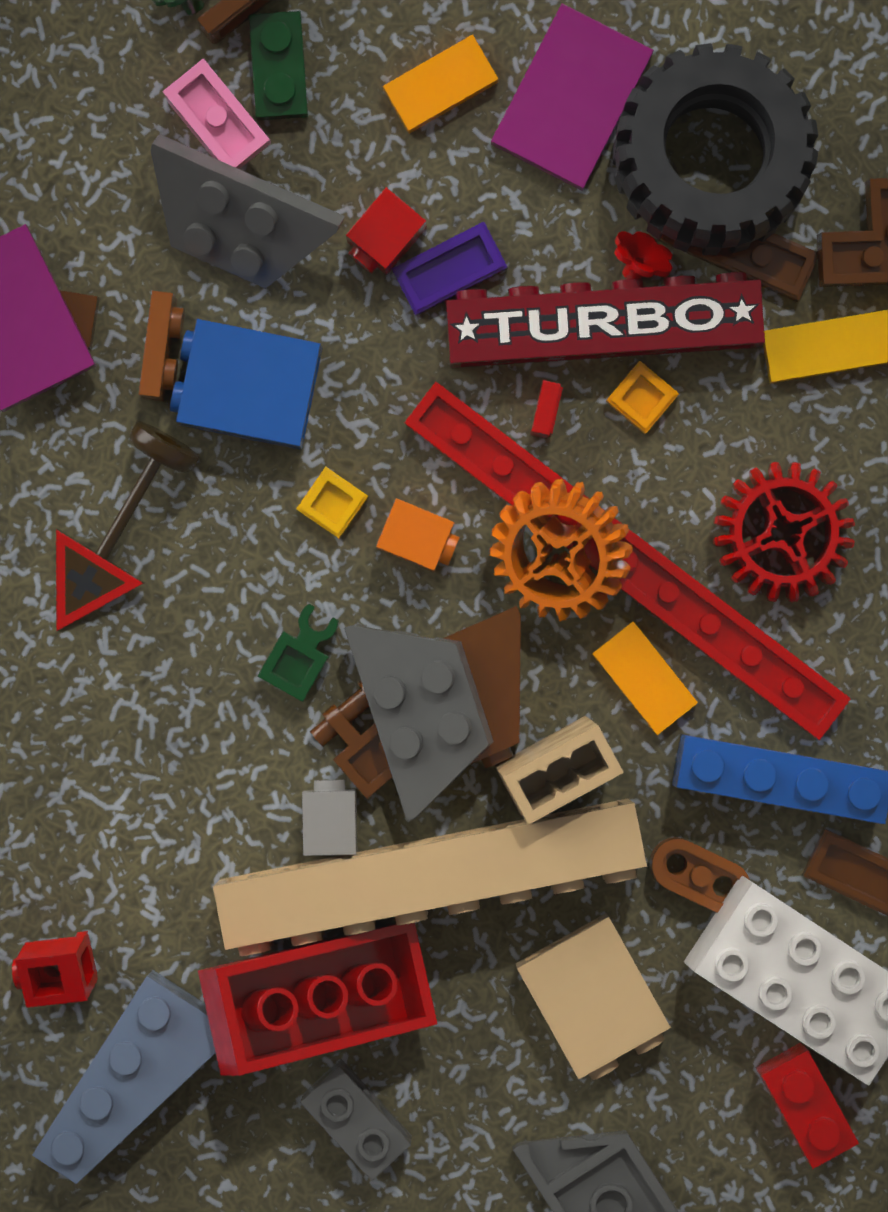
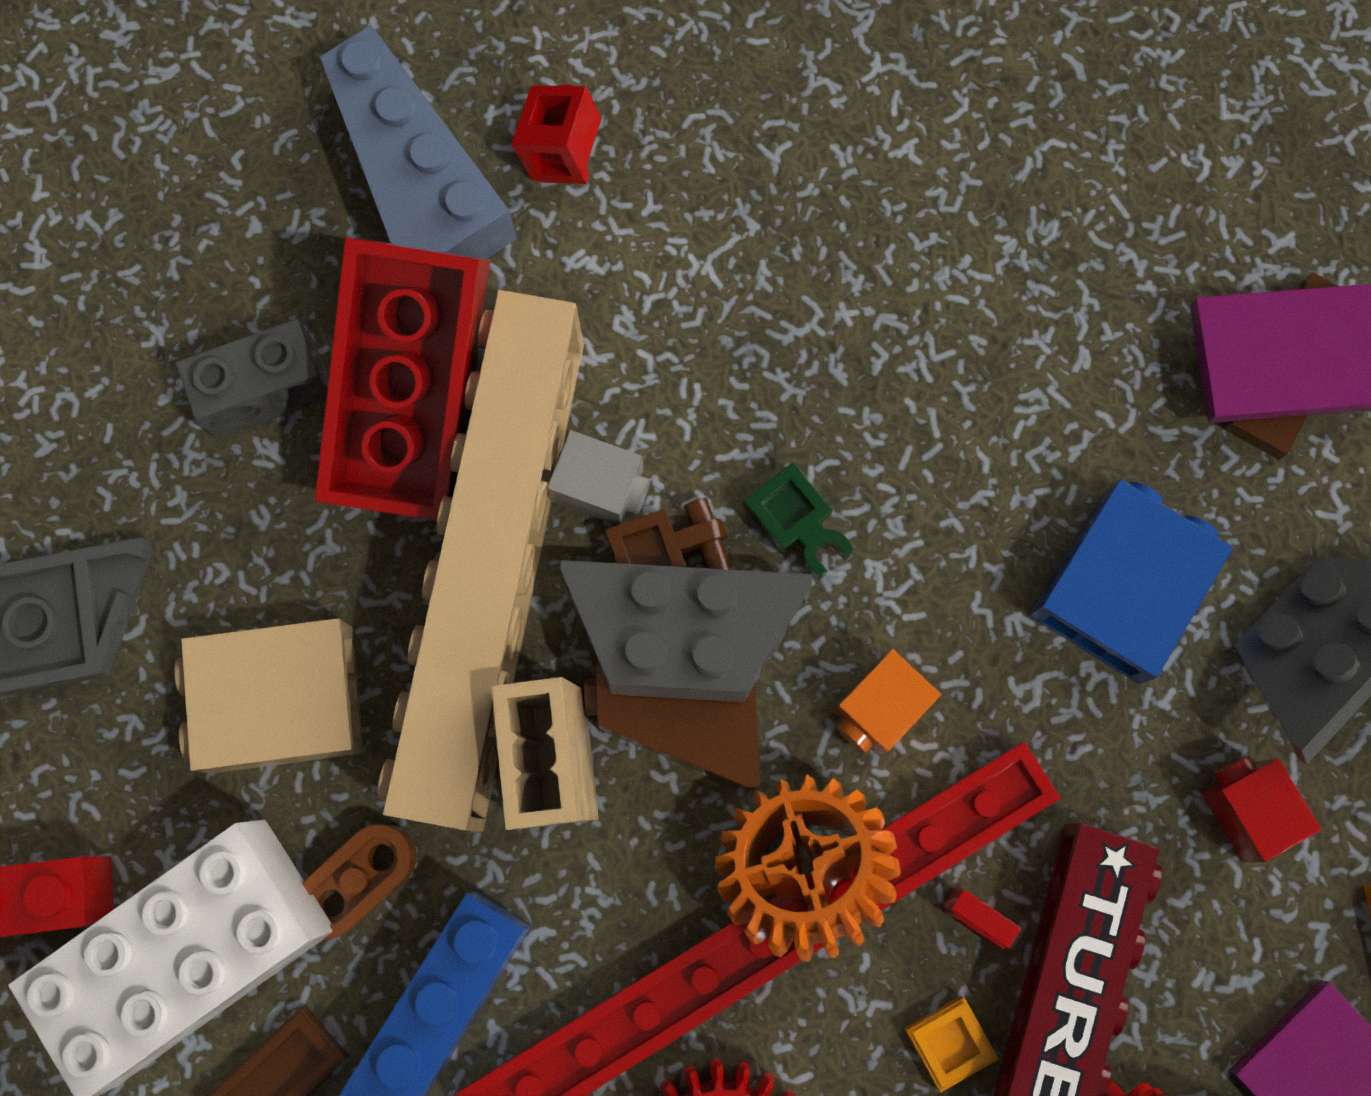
camera: 110 degrees right, 10 degrees down
(87, 577) = (973, 326): dark brown piece -> none
(164, 323) = (1227, 507): dark orange plate -> none
(332, 502) = (956, 625): yellow tile -> none
(449, 268) = (1192, 884): dark purple tile -> none
(644, 678) = (613, 909): light orange tile -> none

